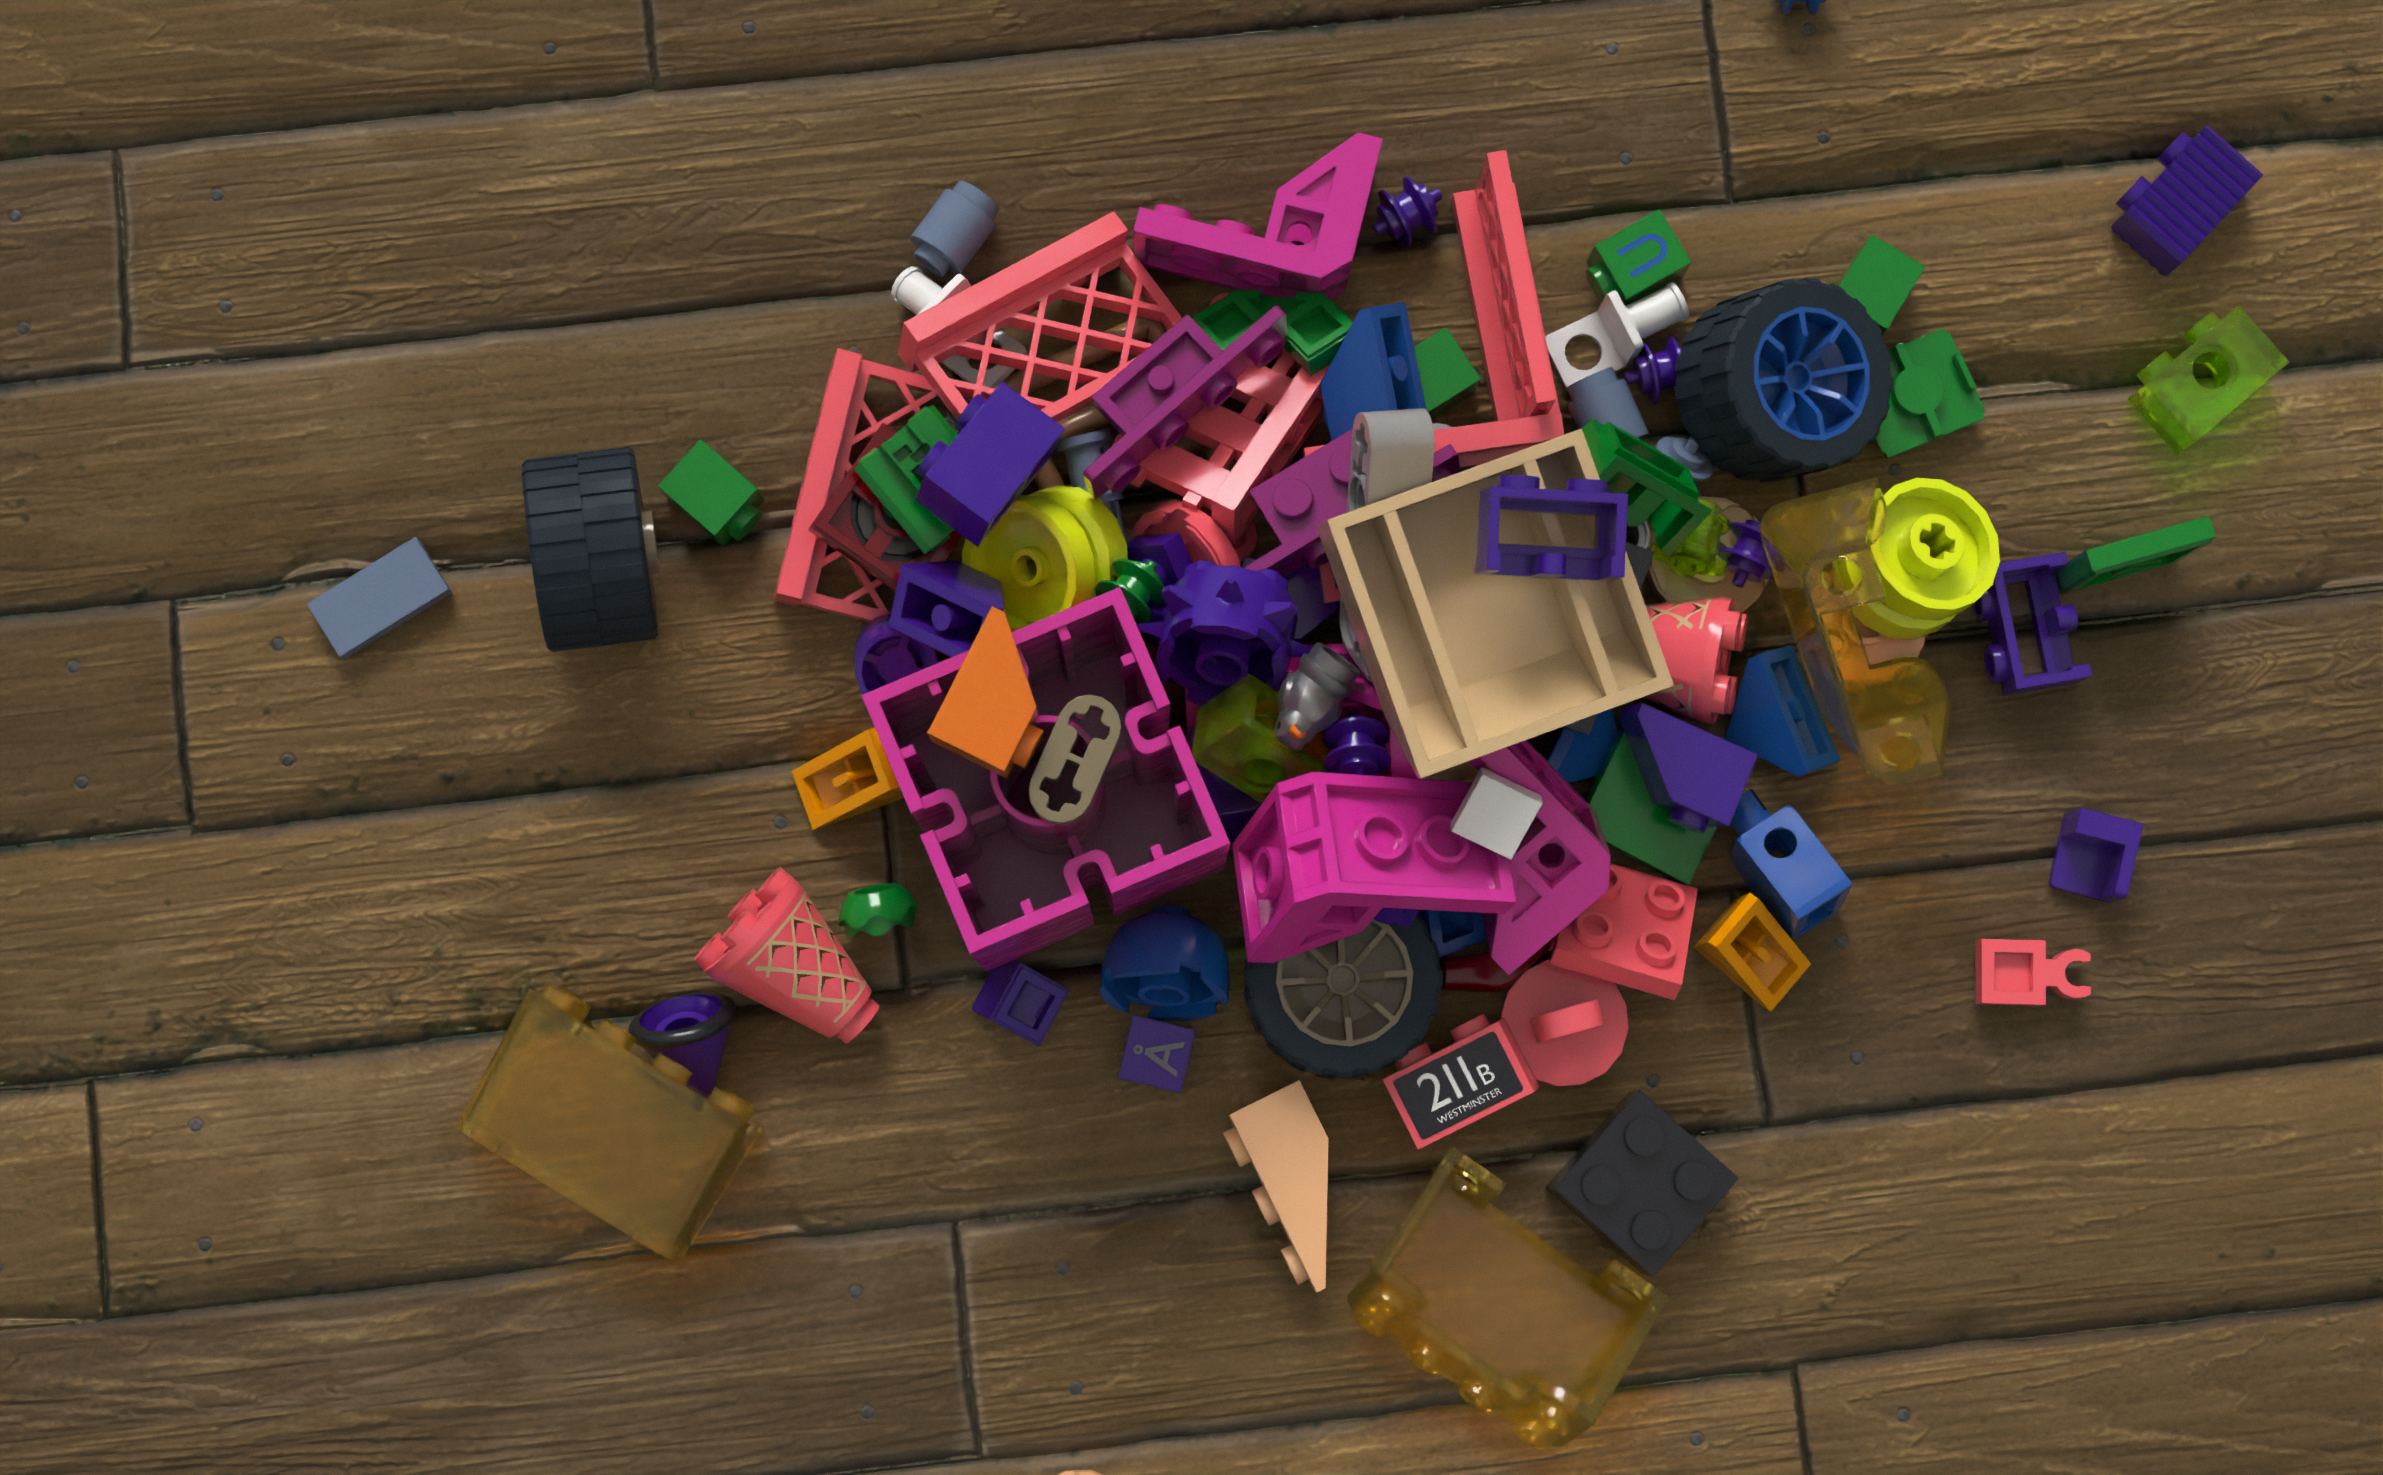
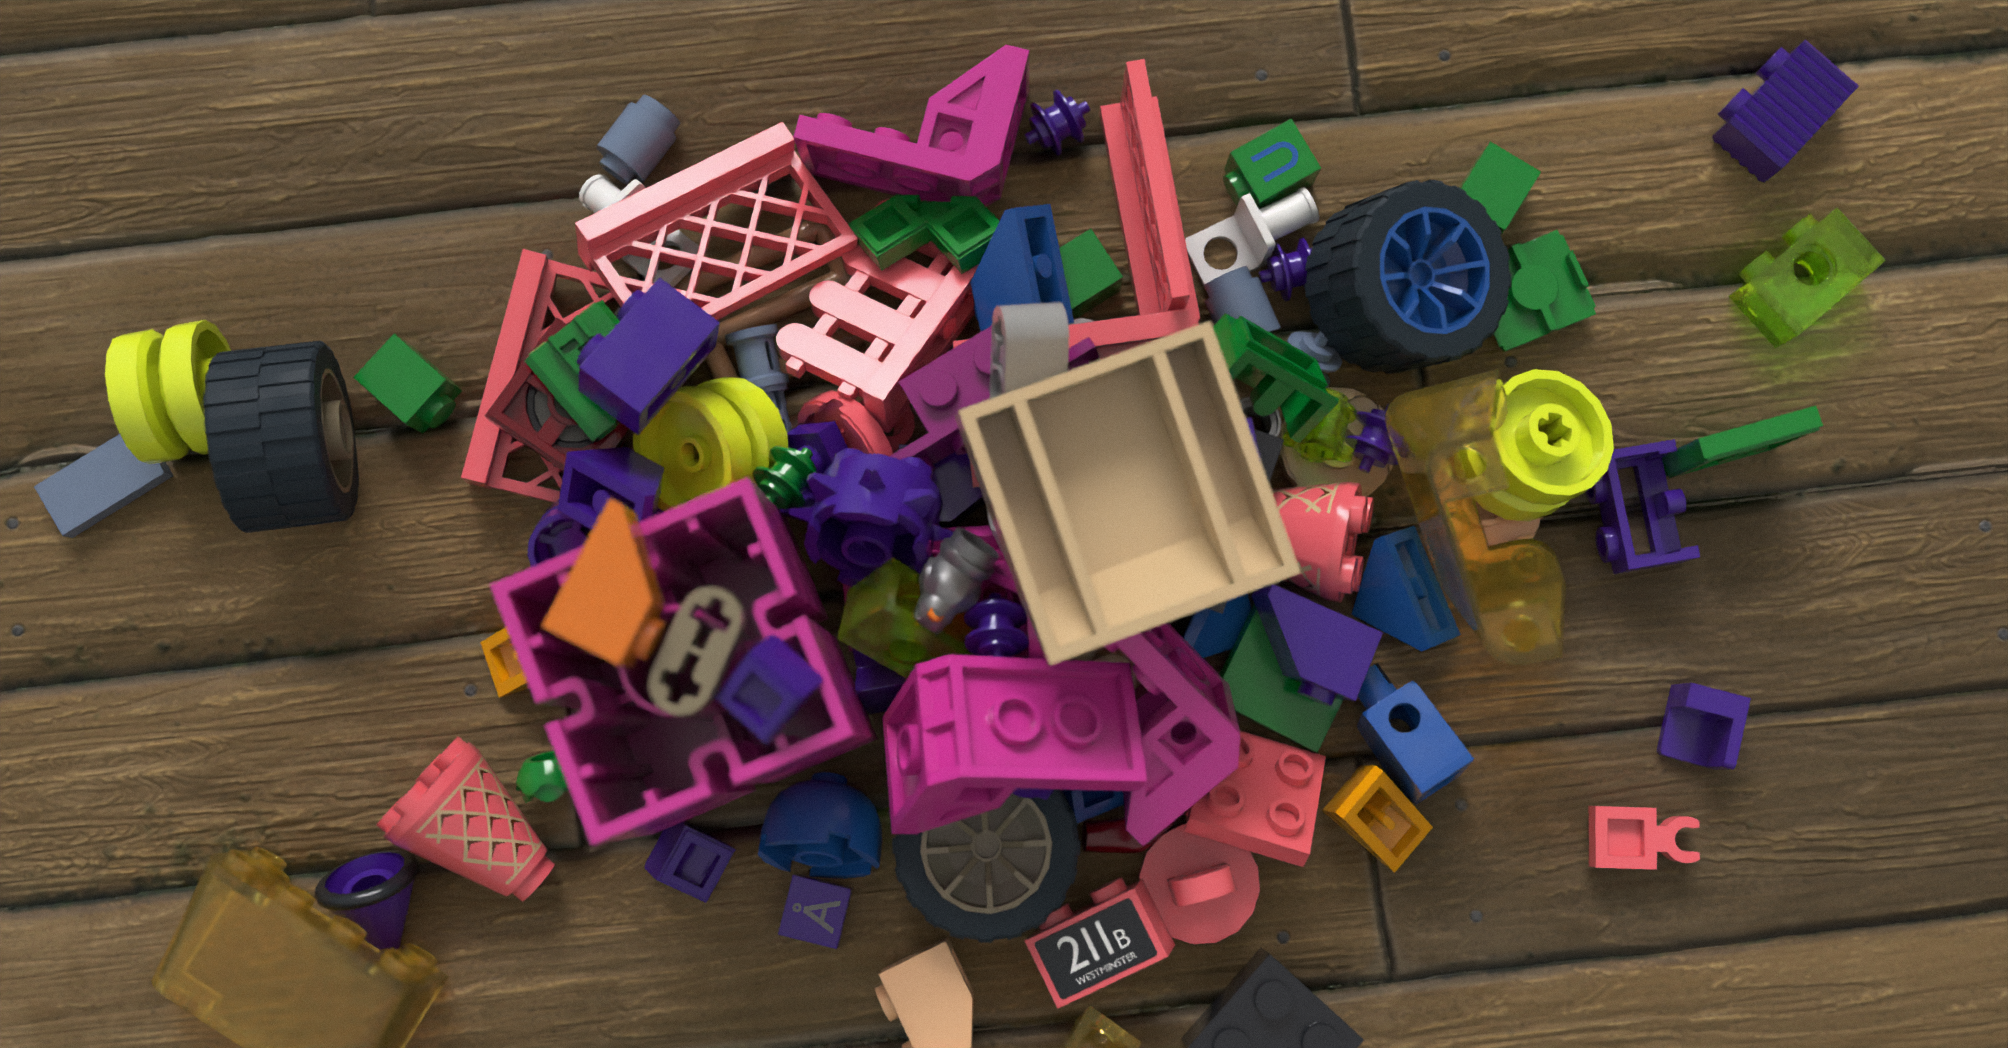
camera: 10 degrees right, 0 degrees up
(468, 501) = (160, 388): none -> neon yellow wheel
(1145, 797) = (768, 687): none -> dark purple slope
(1168, 387) = (828, 283): magenta bracket -> none
(1496, 813) = (1128, 695): white tile -> none
(1581, 497) = (1206, 389): dark purple window -> none

